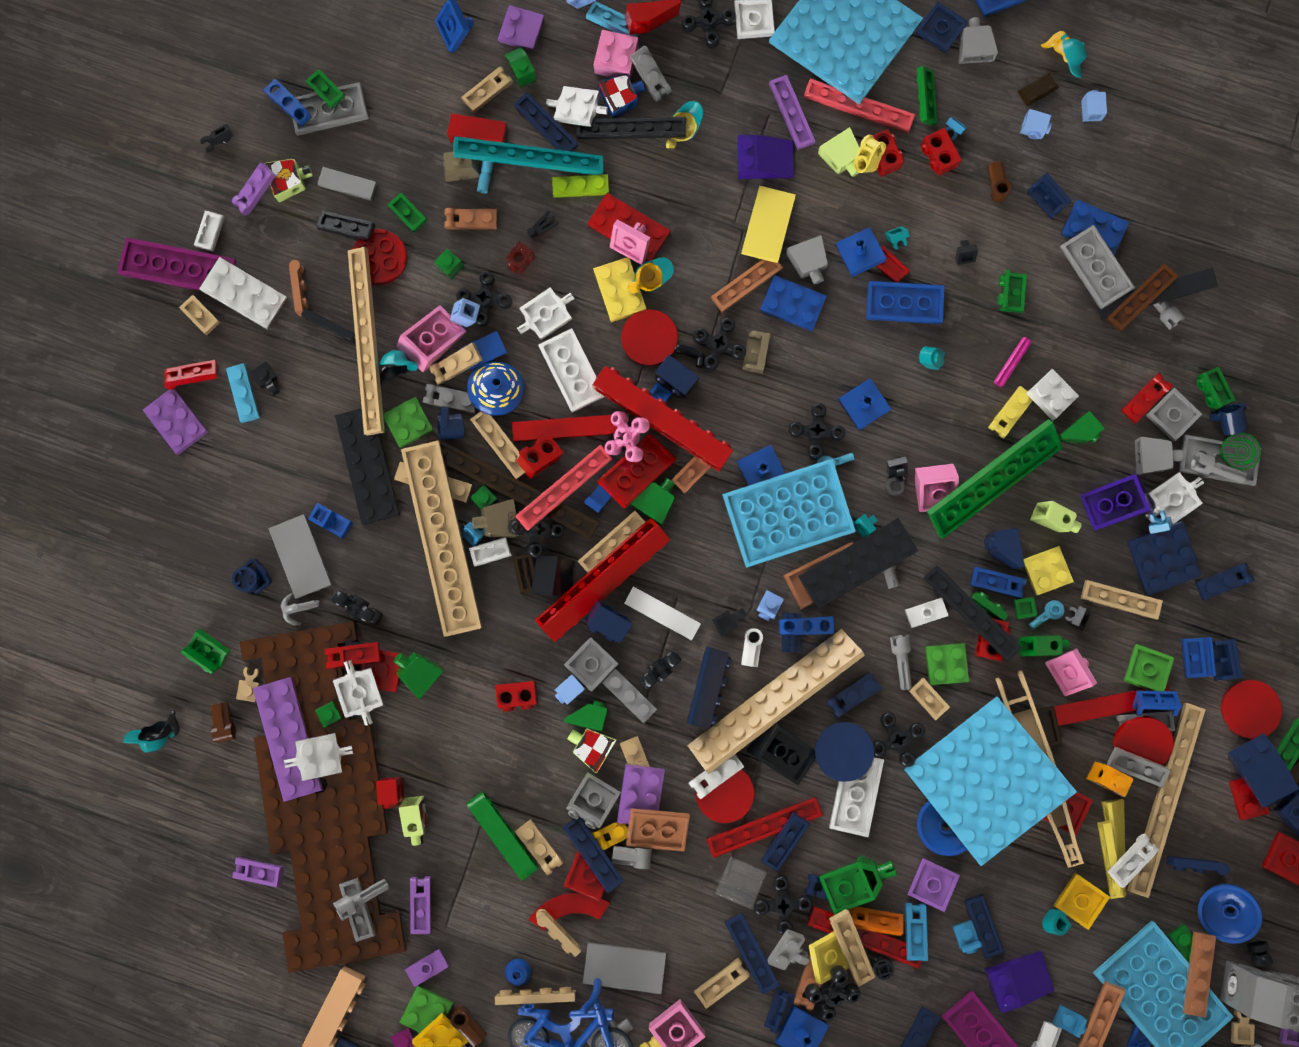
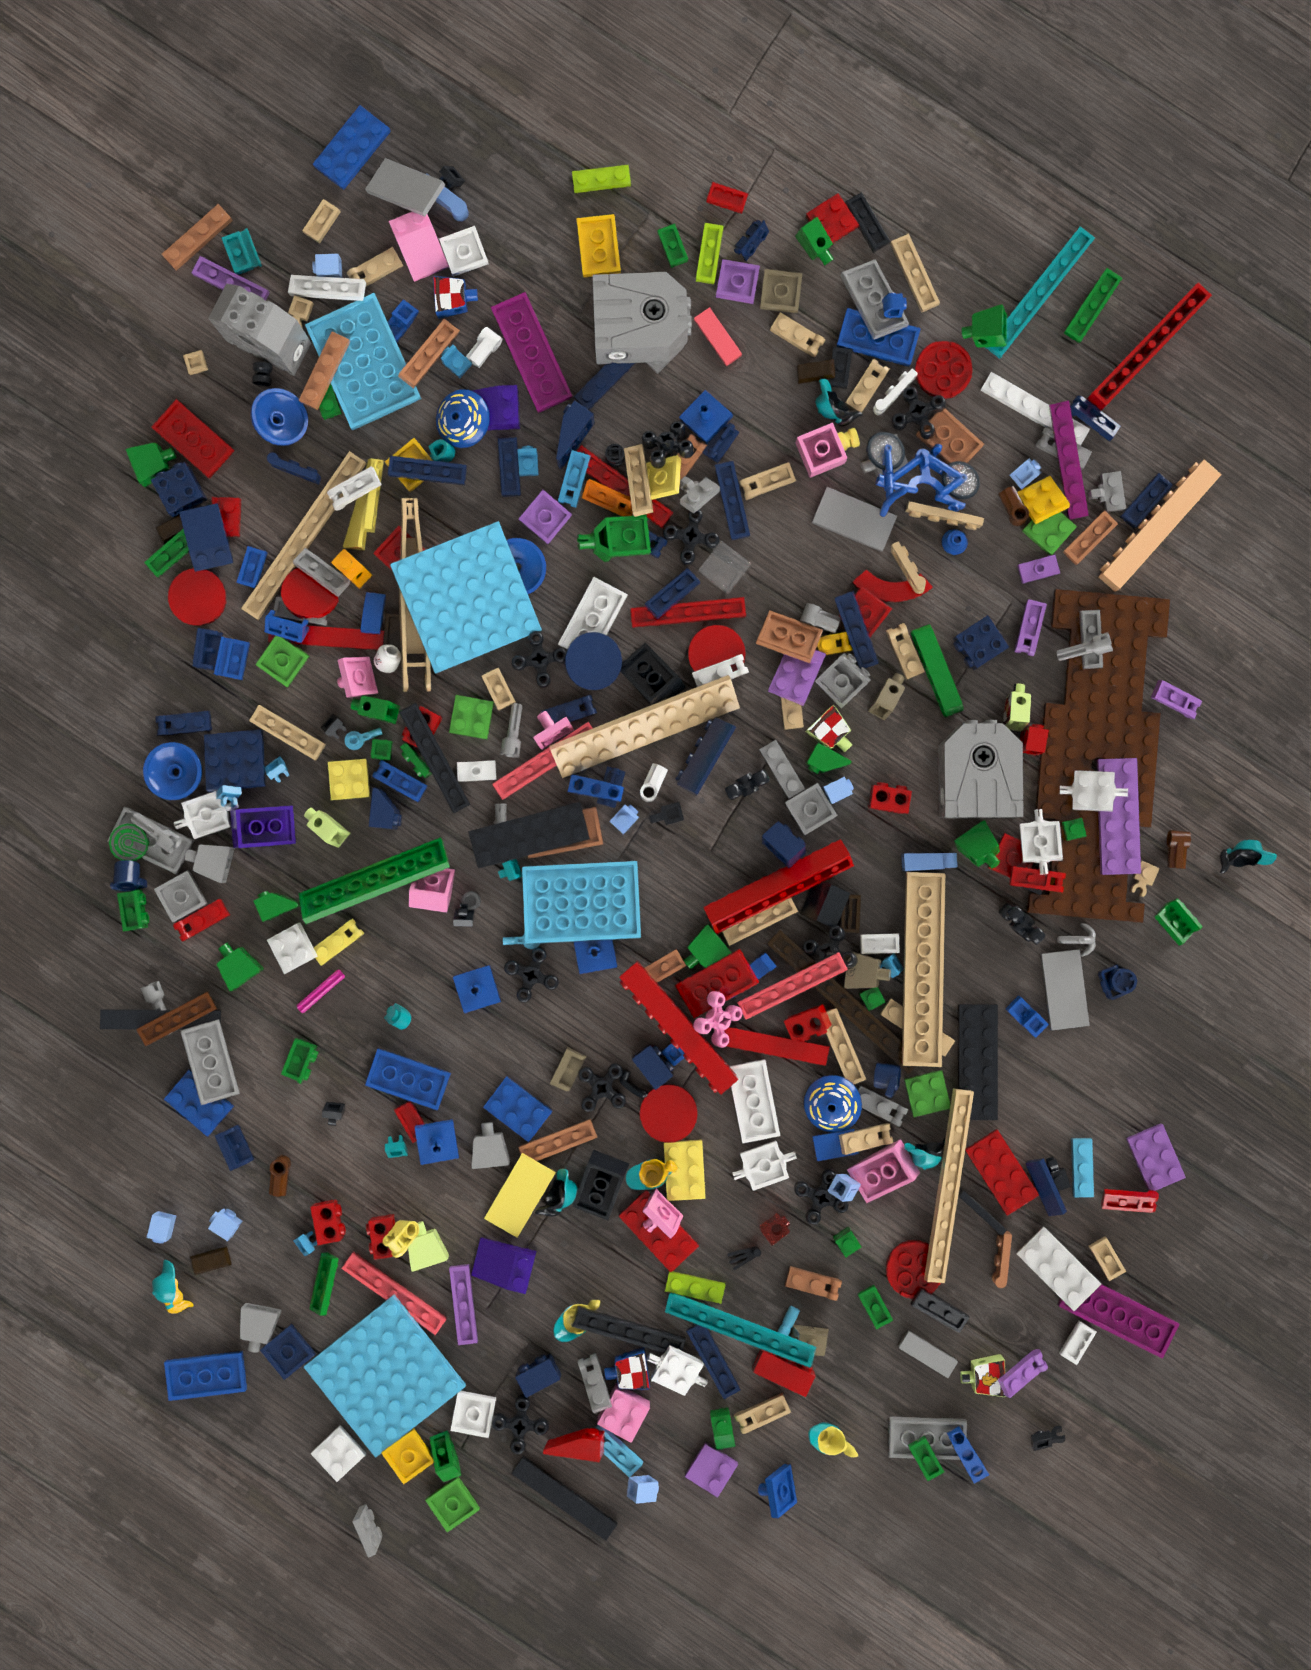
camera: 175 degrees left, 5 degrees up
(273, 365) = (1046, 1187): none -> dark blue tile
(318, 368) = (1001, 1172): none -> red plate
(383, 1014) = (1090, 537): none -> nougat plate
(418, 81) = (830, 1440): none -> light yellow hair
(430, 731) = (980, 786): none -> light grey piece
(463, 644) = (928, 861): none -> medium blue leg
(466, 875) = (980, 643): none -> dark blue brick
(545, 790) = (887, 697): none -> dark tan torso
(662, 613) = (729, 839): white tile -> none
(695, 254) = (600, 1185): none -> black slope
(704, 68) = (537, 1375): none -> dark blue brick
(730, 233) = (560, 1196): none -> hair
(864, 670) = (552, 731): none -> bright pink tile
(874, 629) = (531, 769): none -> coral tile
(931, 982) = (575, 426): none -> dark blue slope
(1036, 963) = (472, 418): none -> blue dish
(1047, 698) = (387, 658): none -> white head
(1065, 899) = (427, 470): none -> dark blue plate
(1075, 740) = (373, 613): none -> blue slope
(1099, 363) = (237, 966): none -> green torso
(1121, 562) = (275, 768): none -> dark azure tile
(1207, 753) = (252, 567): none -> blue plate
(1232, 526) = (160, 768): none -> blue dish

